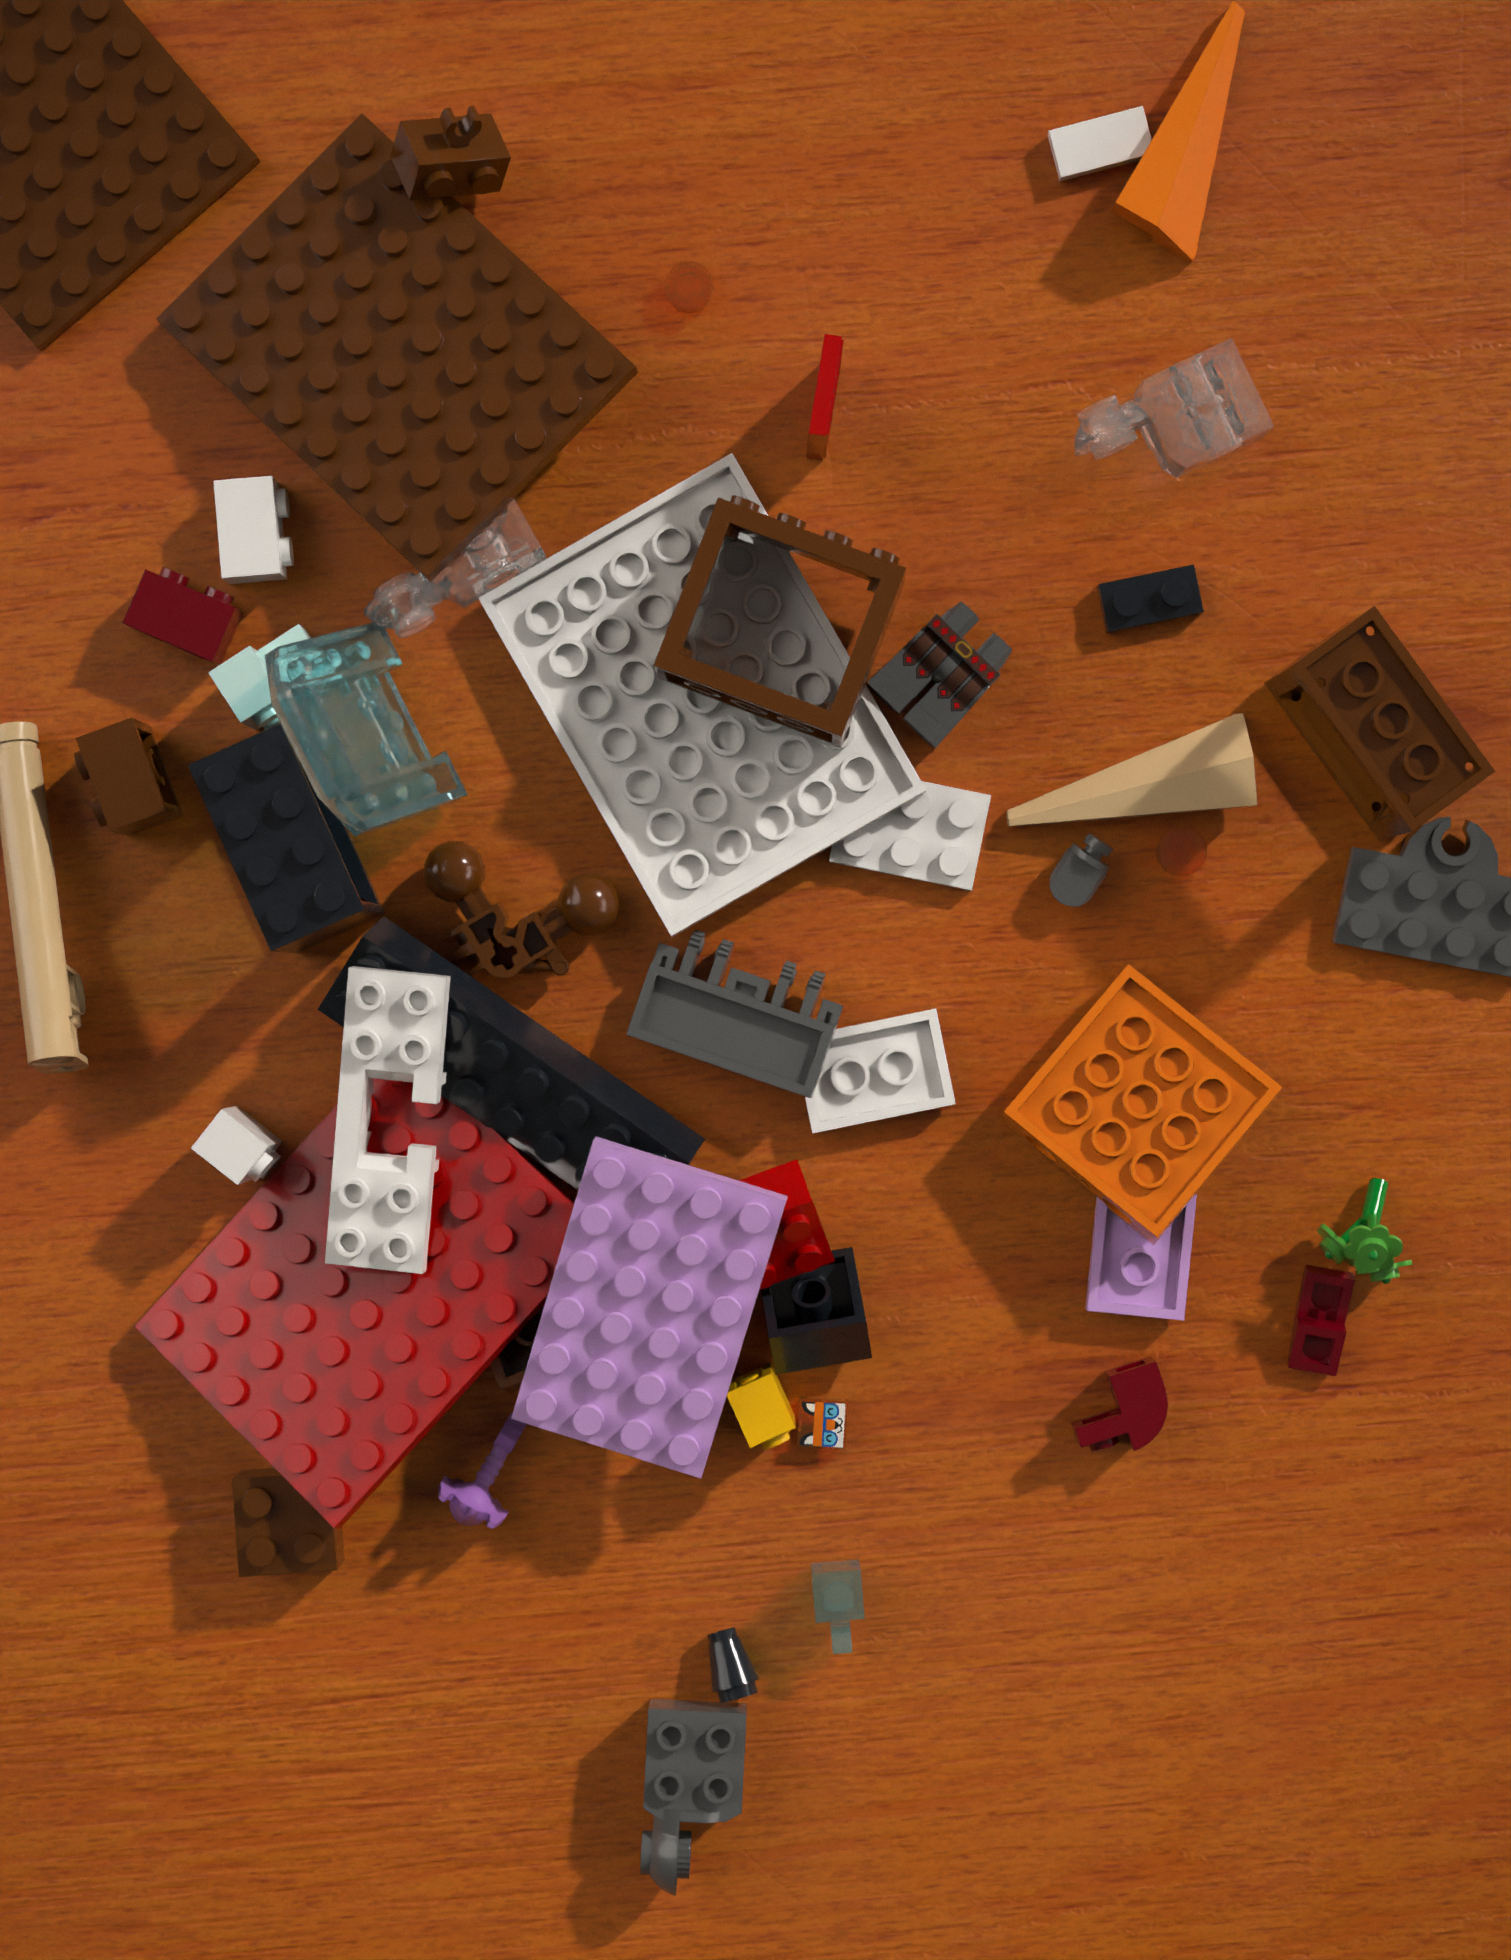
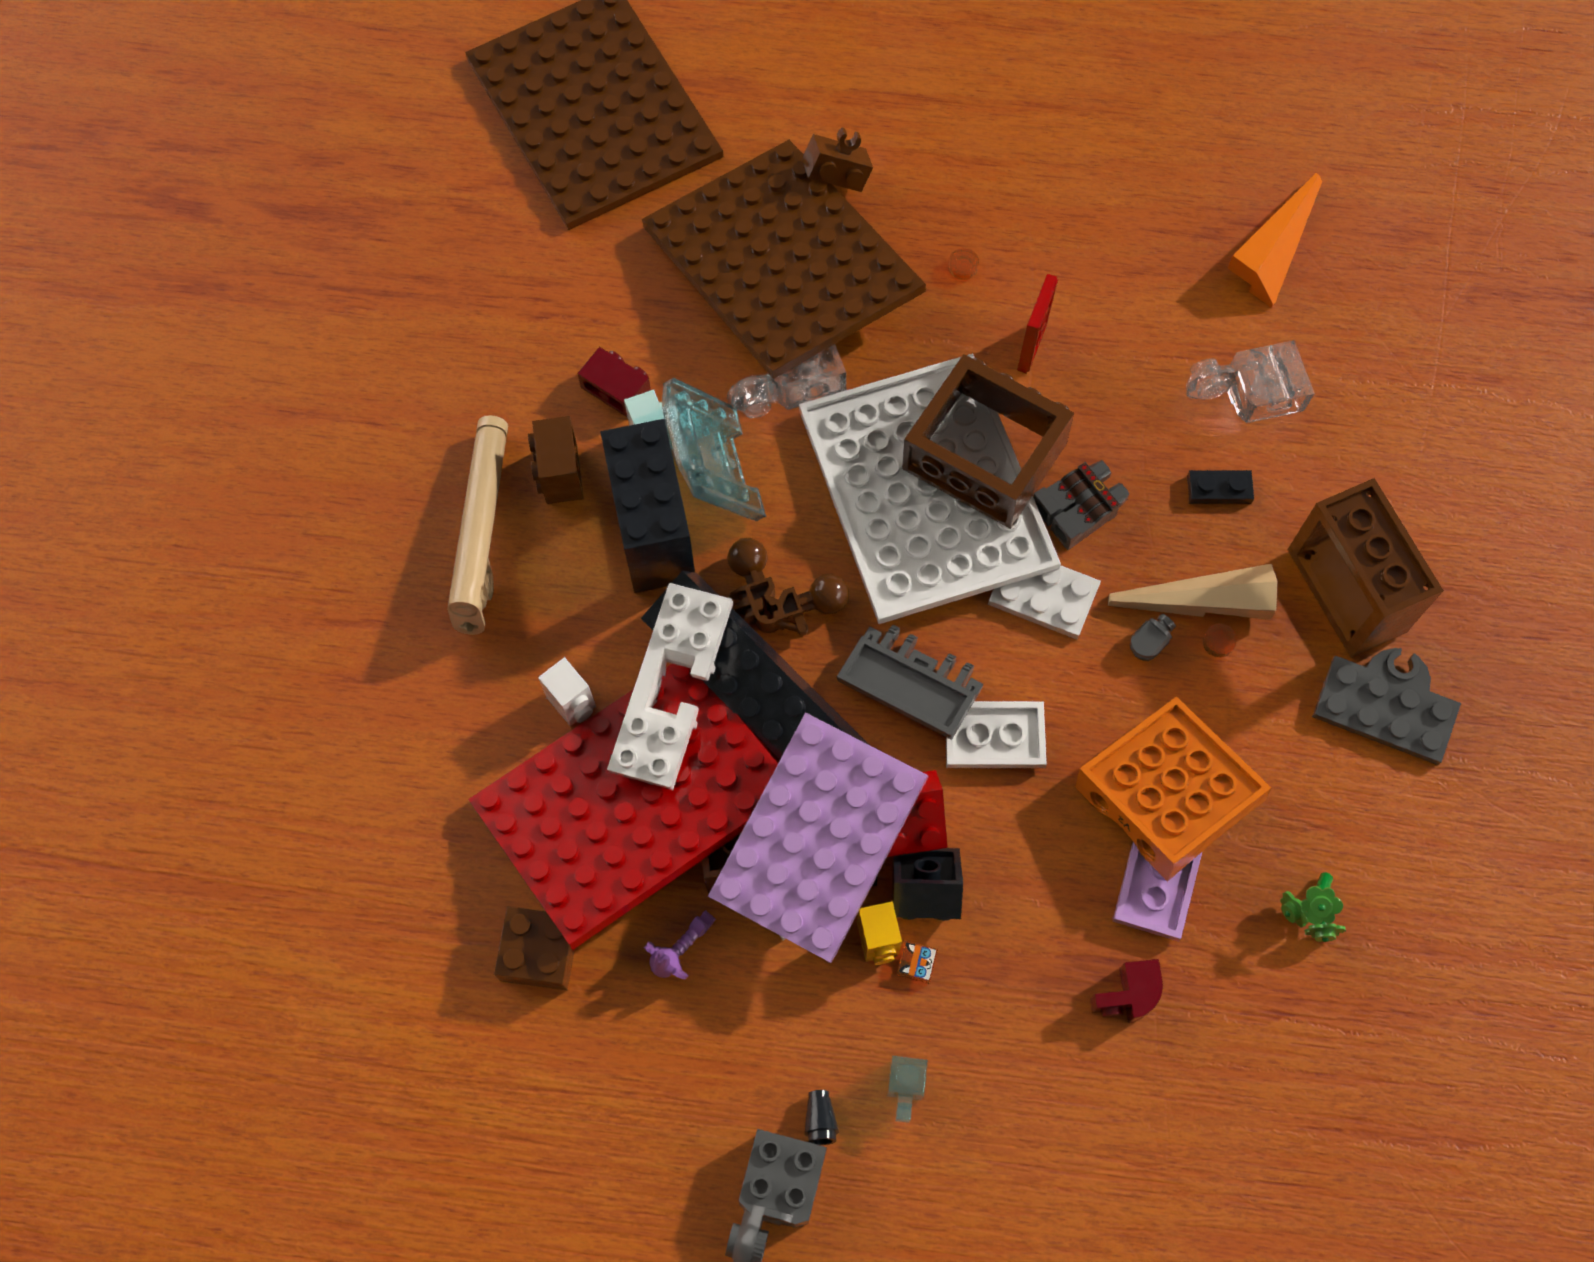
camera: 15 degrees right, 20 degrees down
(252, 529) = (668, 342): white brick -> none
(1099, 143) = (1223, 232): white tile -> none
(1320, 1320) = (1275, 962): dark red slope -> none

